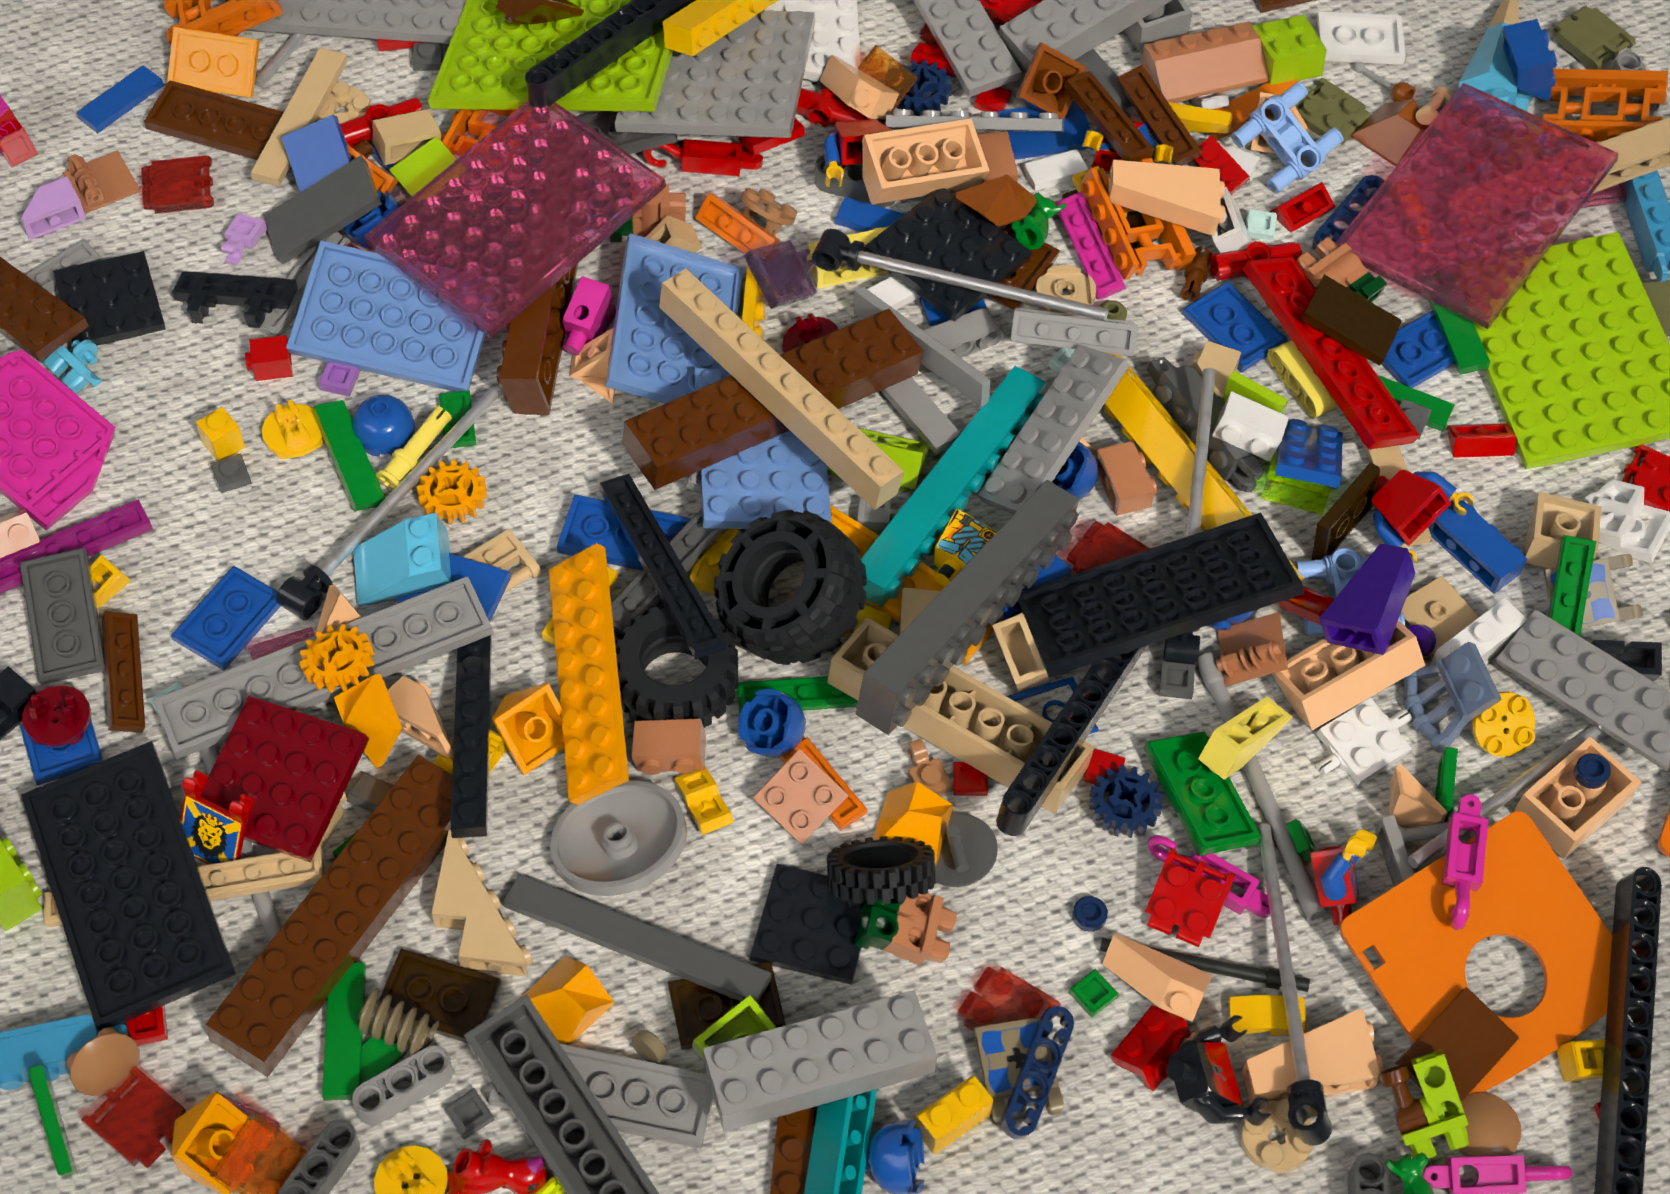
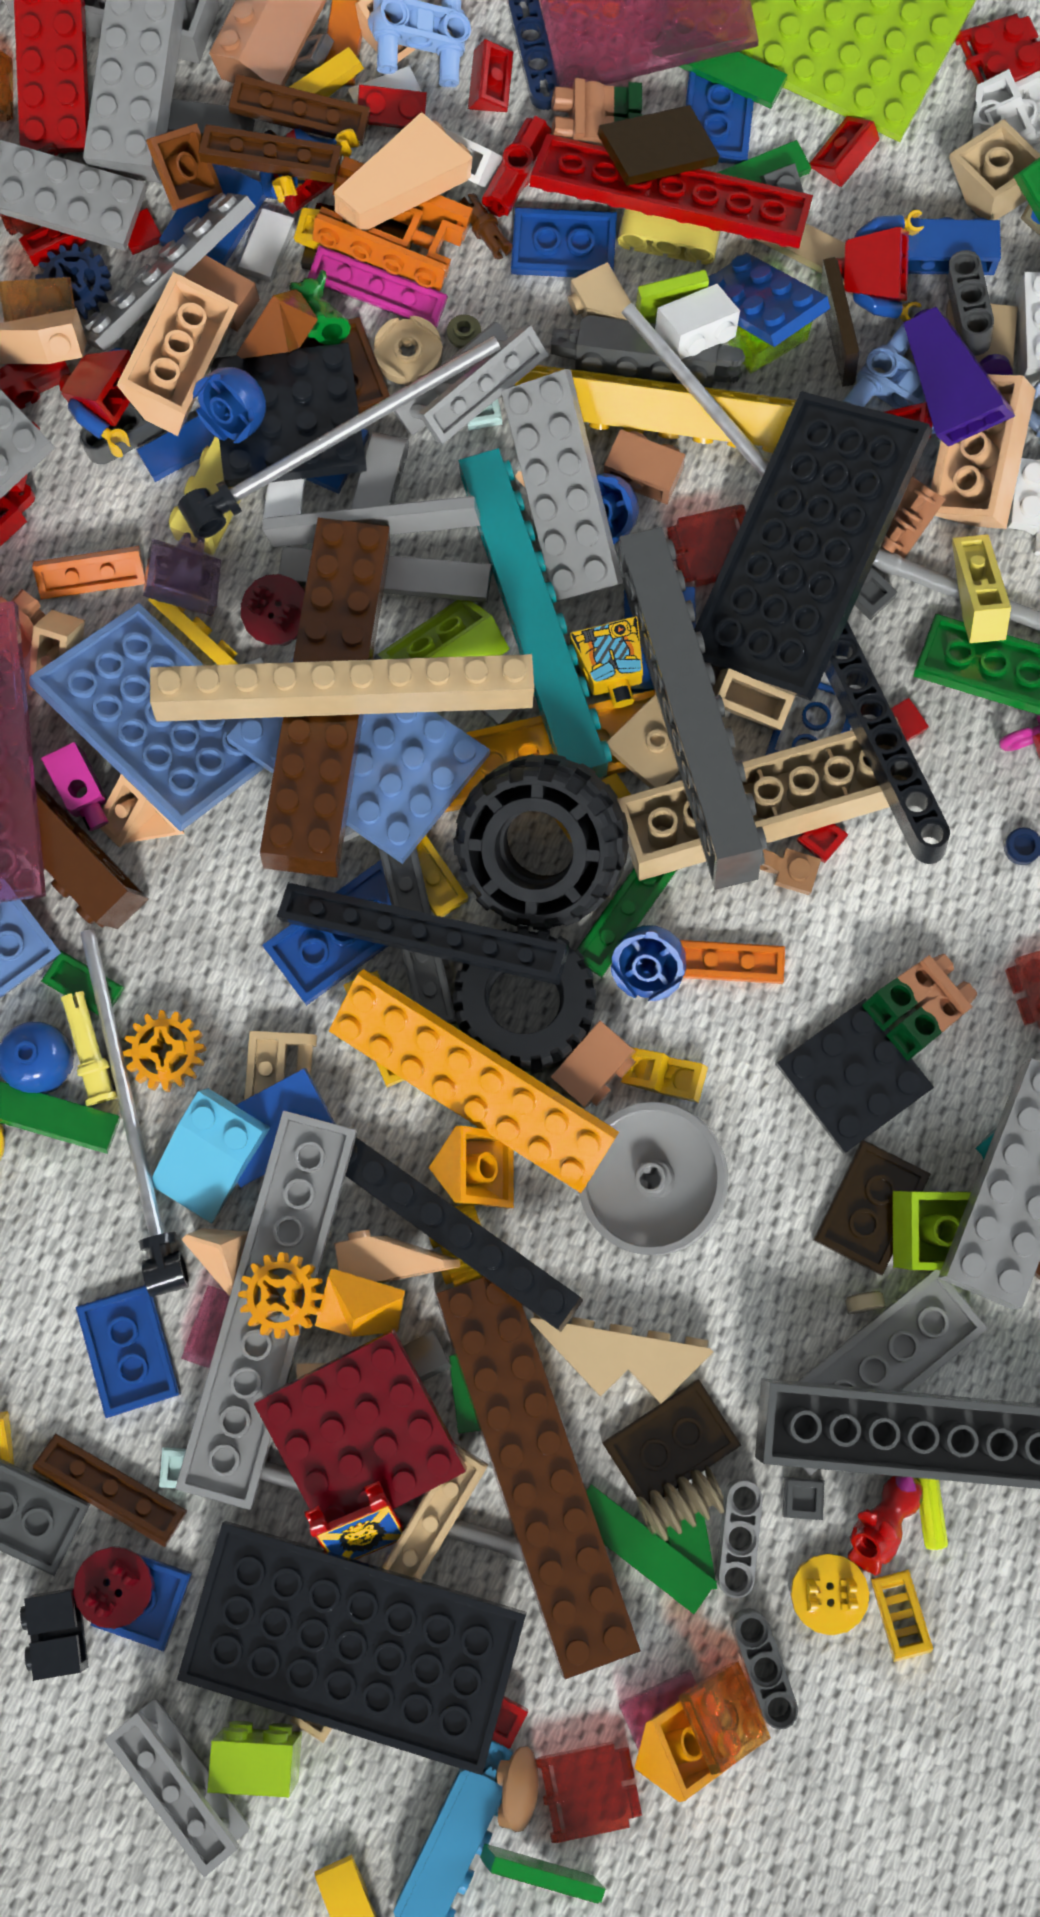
camera: 45 degrees left, 20 degrees up
(569, 999) = (762, 1340): light orange slope -> none
(636, 939) = (756, 1236): dark grey tile -> none
(766, 206) = (93, 527): medium nougat plate -> none
(800, 796) = (734, 993): nougat hinge -> none
(881, 870) = (893, 1009): black tyre -> none
(915, 814) = (831, 922): light orange slope -> none
(916, 207) = (230, 403): none -> blue cylinder
(966, 852) = (881, 904): dark grey shield -> none
(1125, 813) = (936, 729): dark blue gear -> none
(1261, 224) = (478, 127): light aqua tile -> none
(1446, 582) = (970, 301): none -> dark grey beam

